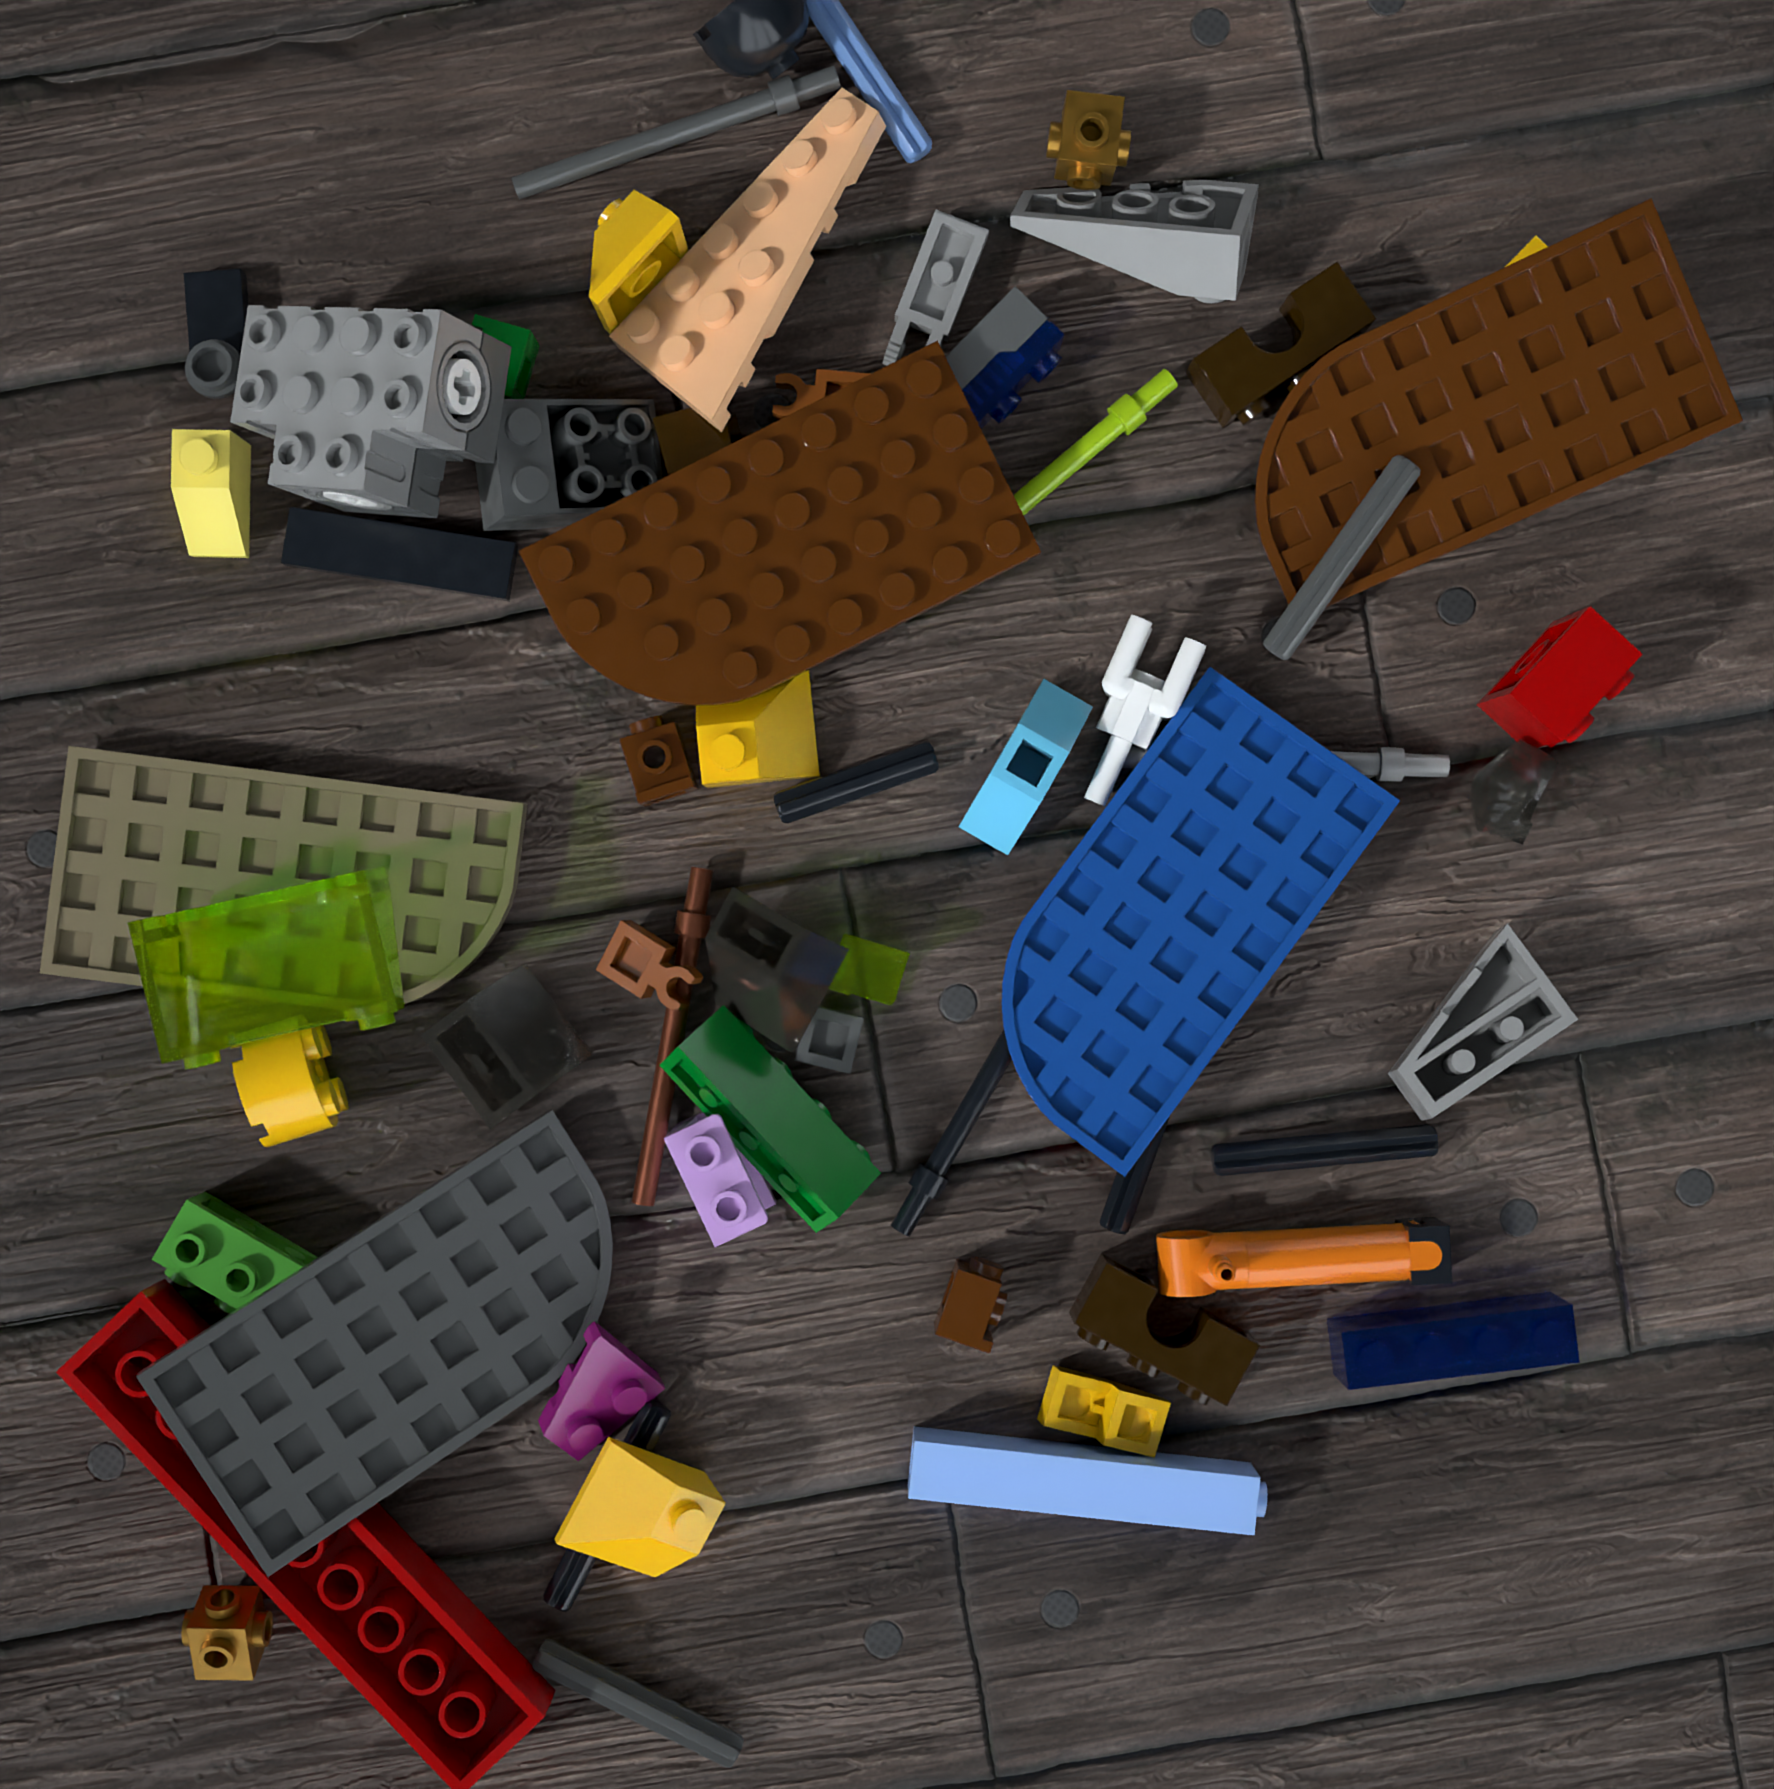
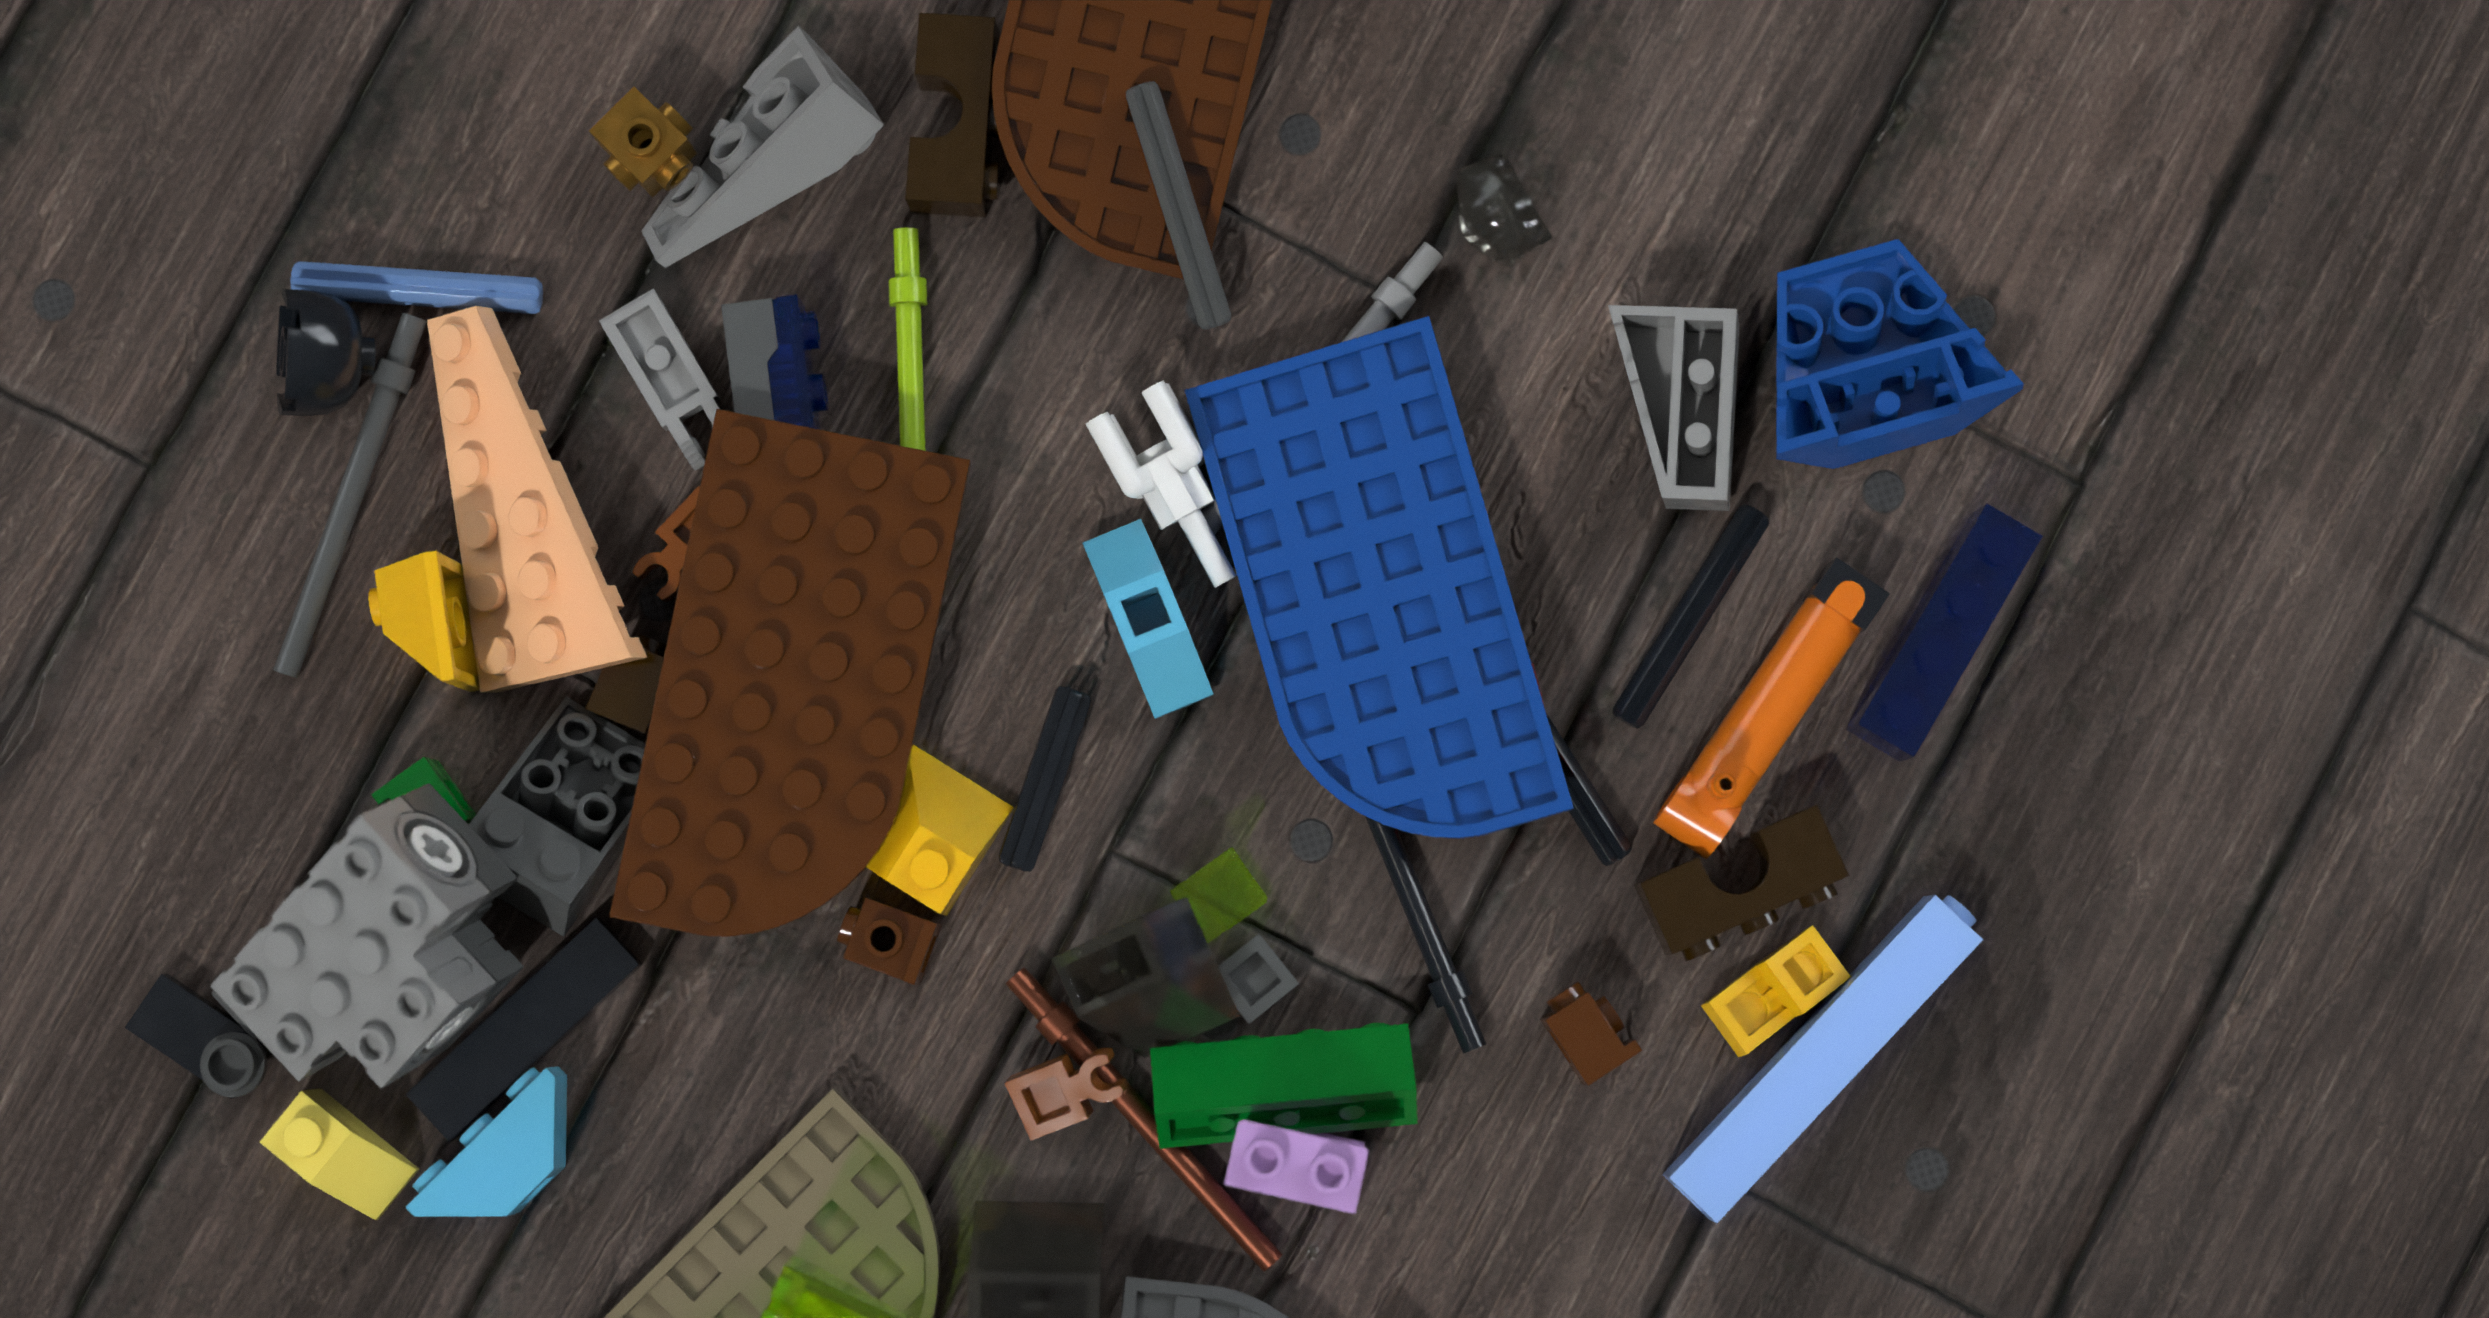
camera: 55 degrees left, 5 degrees down
(298, 610) = (503, 1157): none -> medium azure slope
(1561, 680) = (1431, 98): red brick -> none
(1613, 1144) = (1875, 360): none -> blue wedge

